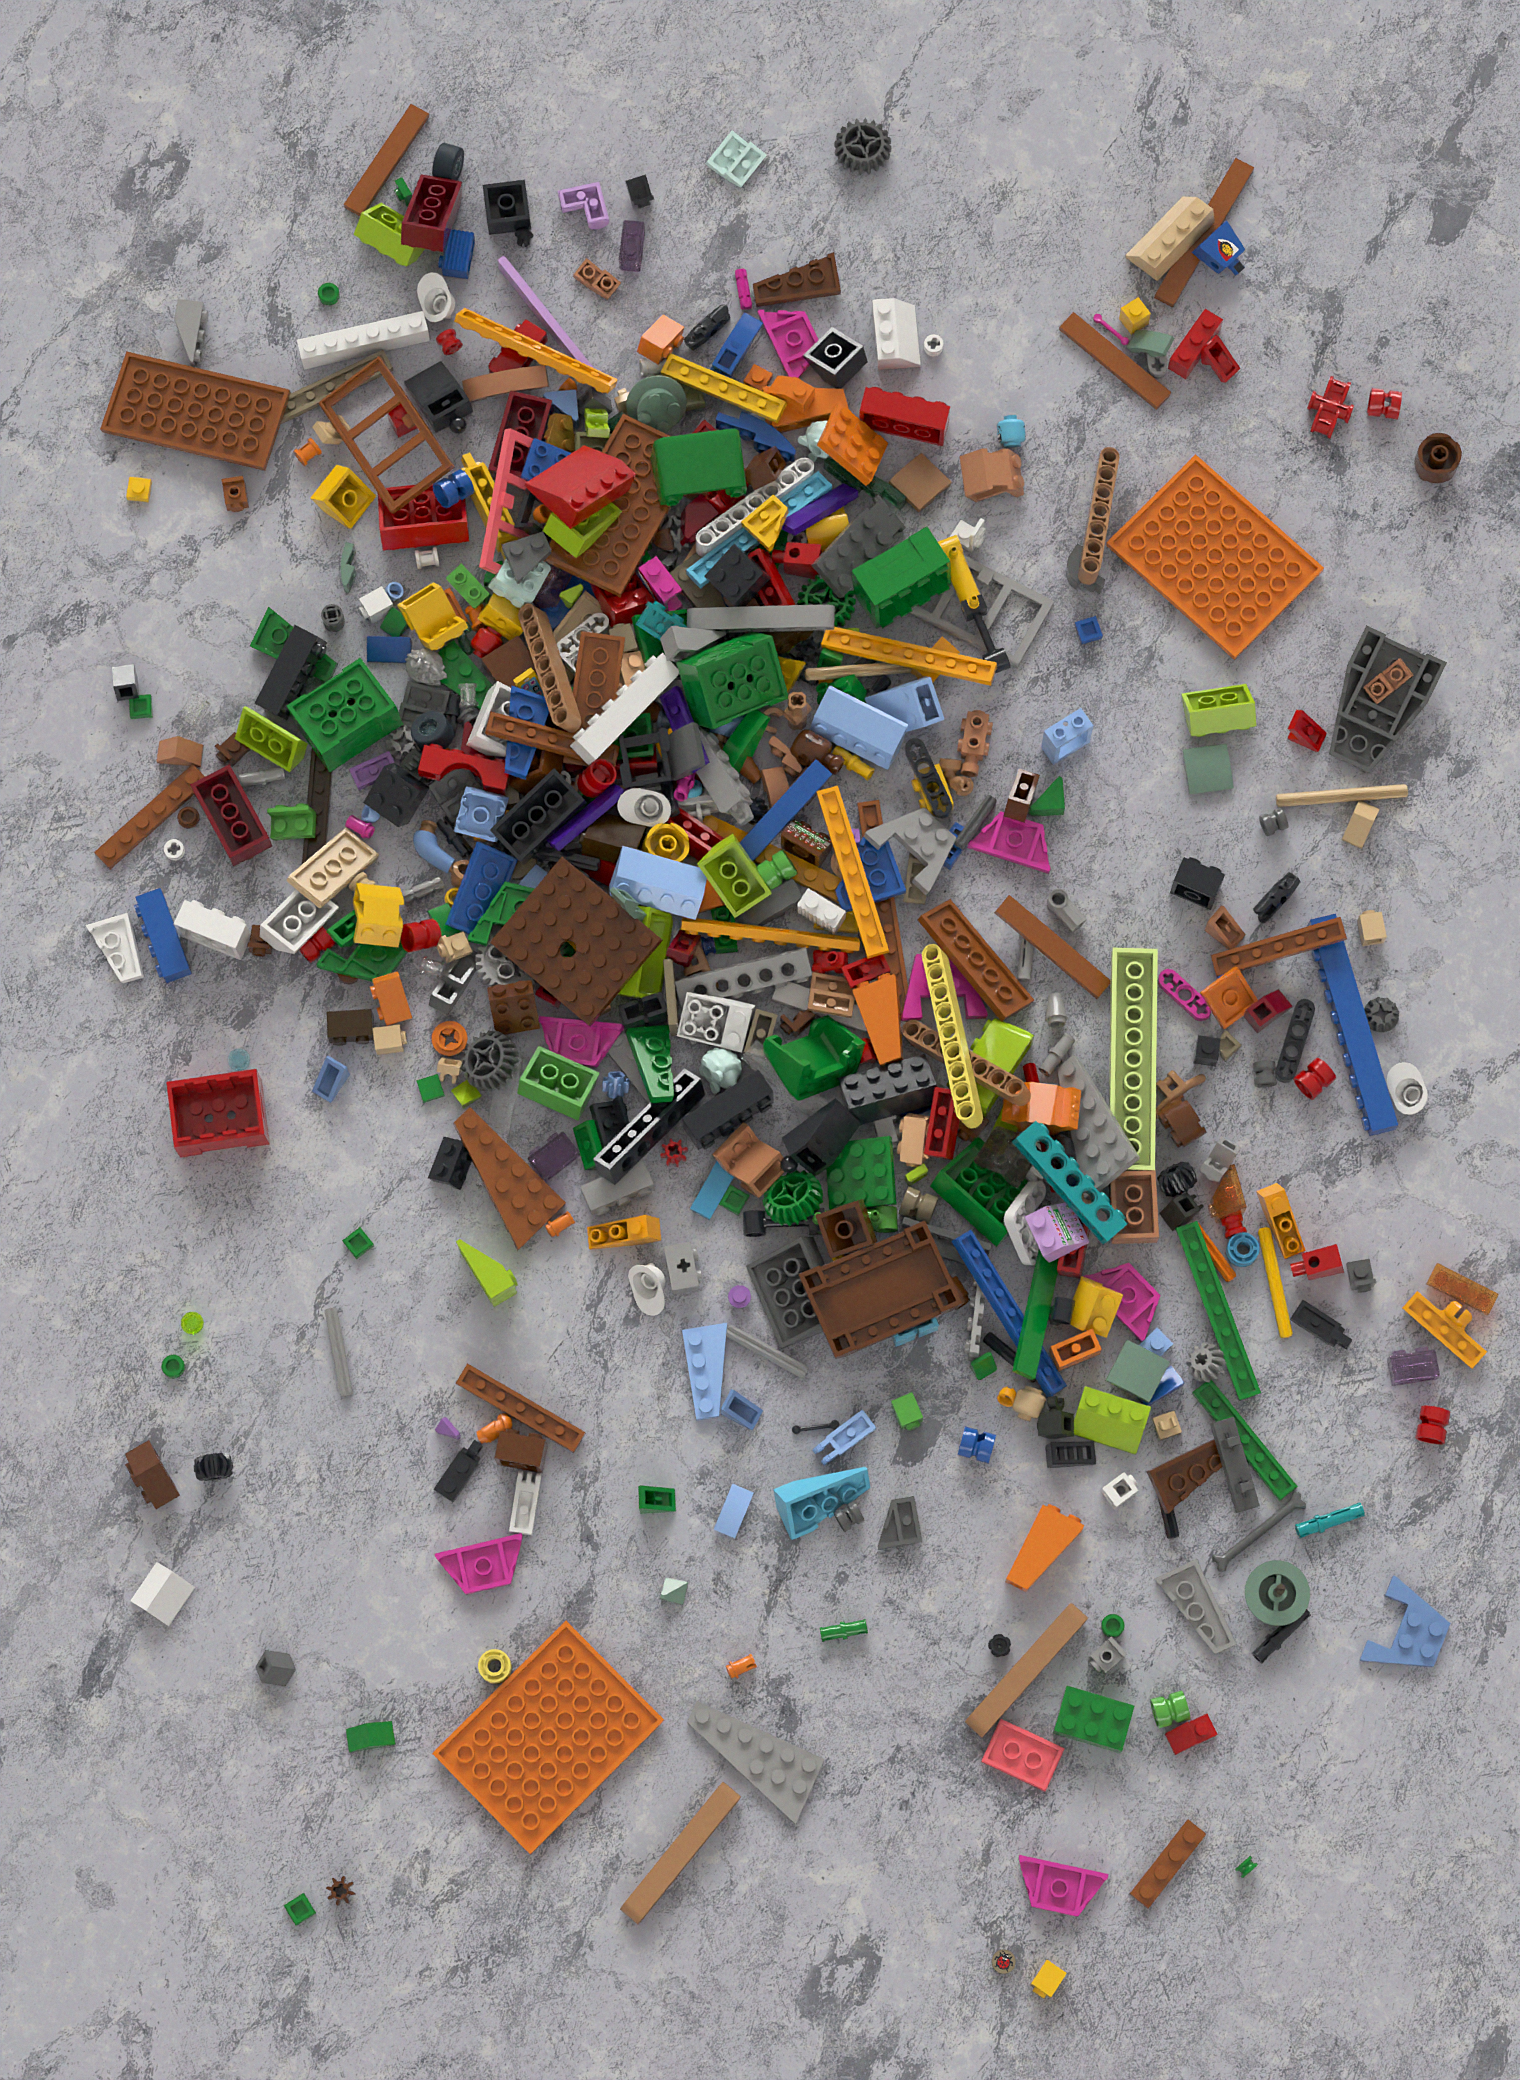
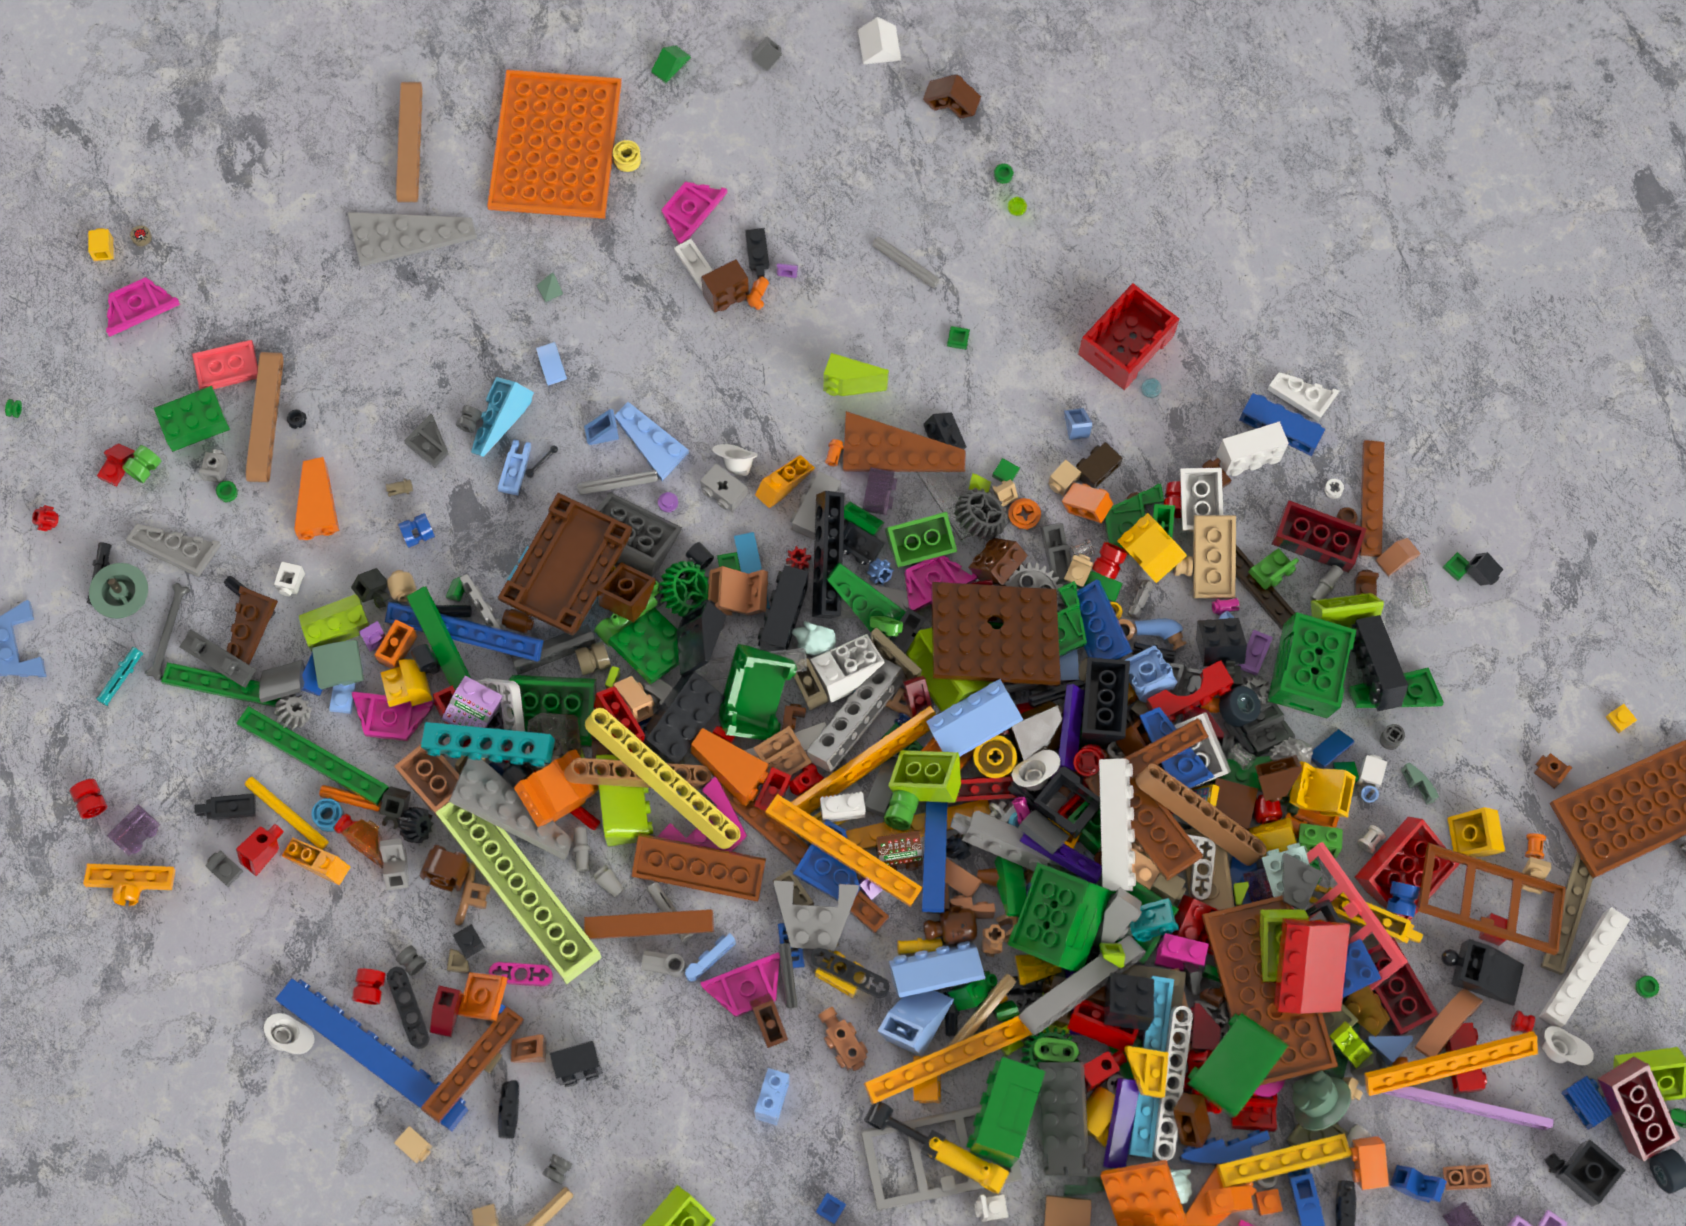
camera: 135 degrees right, 5 degrees down
(213, 1466) = (917, 129): black gear -> none
(458, 648) = (1278, 777): none -> reddish brown slope
(520, 1408) = (752, 318): dark orange plate -> none
(628, 903) = (979, 676): sand green slope -> none
(638, 299) = (1417, 1185): none -> blue brick
(656, 1023) = (886, 624): none -> bright green plate
(656, 1499) = (611, 329): green slope -> none
(716, 620) = (1113, 953): none -> lime slope
(740, 1666) = (464, 276): orange pin -> none
(823, 595) = (1055, 1050): none -> bright green plate
(843, 1630) = (412, 348): green pin -> none
(907, 1411) = (484, 516): bright green brick -> none
(959, 1501) = (399, 487): none -> dark tan pin
(961, 784) = (843, 1003): medium nougat arm -> none
(1005, 1401) = (422, 581): light orange hinge -> none
(1026, 885) = (709, 958): none -> light blue hinge
(1051, 801) = (743, 1041): green slope -> none
(1052, 1461) = (345, 568): black slope -> none
(1089, 1370) = (372, 636): none -> medium lavender plate
(1167, 1425) = (290, 651): tan tile -> none
(1167, 1863) = (72, 373): dark orange plate -> none
(1196, 1395) = (281, 681): none -> dark grey slope
(1208, 768) = (644, 1171): sand green slope -> none
(1292, 1725) = (45, 518): none -> red gear
(1375, 1022) = (355, 1093): dark grey gear -> none
(1462, 1289) = (137, 918): clear orange plate -> none

